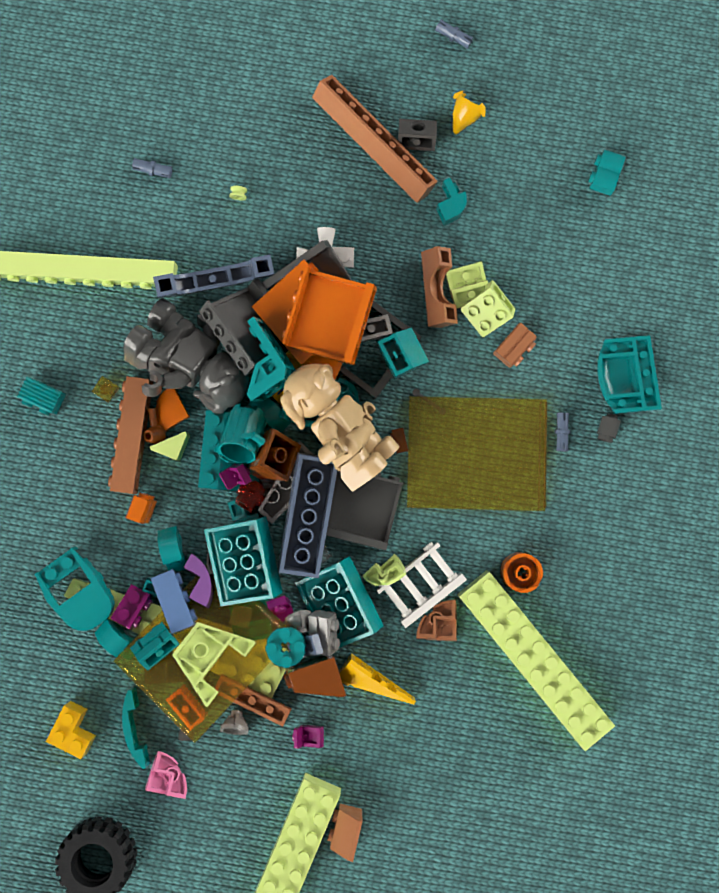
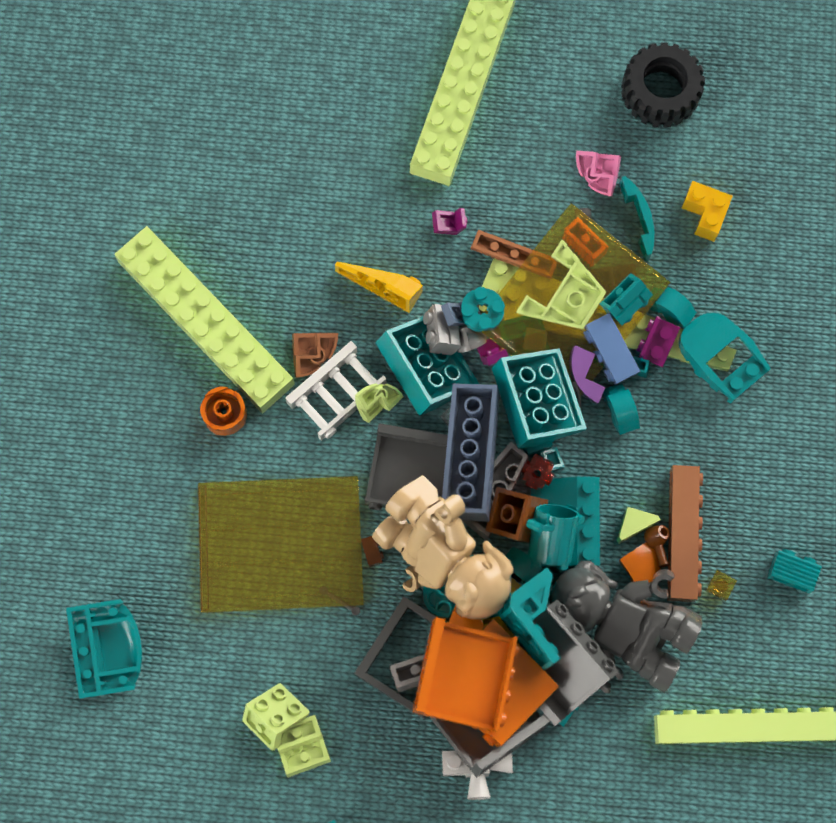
camera: 175 degrees right, 10 degrees down
(141, 508) = (660, 449): orange brick -> none
(189, 283) = (569, 738): sand blue arch -> none
(235, 475) = (557, 493): magenta bracket -> none
(235, 724) = (530, 229): light grey piece -> none
(315, 677) = (447, 280): dark orange slope -> none
(346, 831) = (400, 130): nougat slope -> none
(402, 352) = (375, 648): teal slope -> none
(435, 265) = (335, 711): nougat arch -> none
(515, 345) = (241, 673): nougat brick -> none
(562, 432) = (180, 576): sand blue pin -> none
(608, 428) = (126, 583): dark grey brick -> none

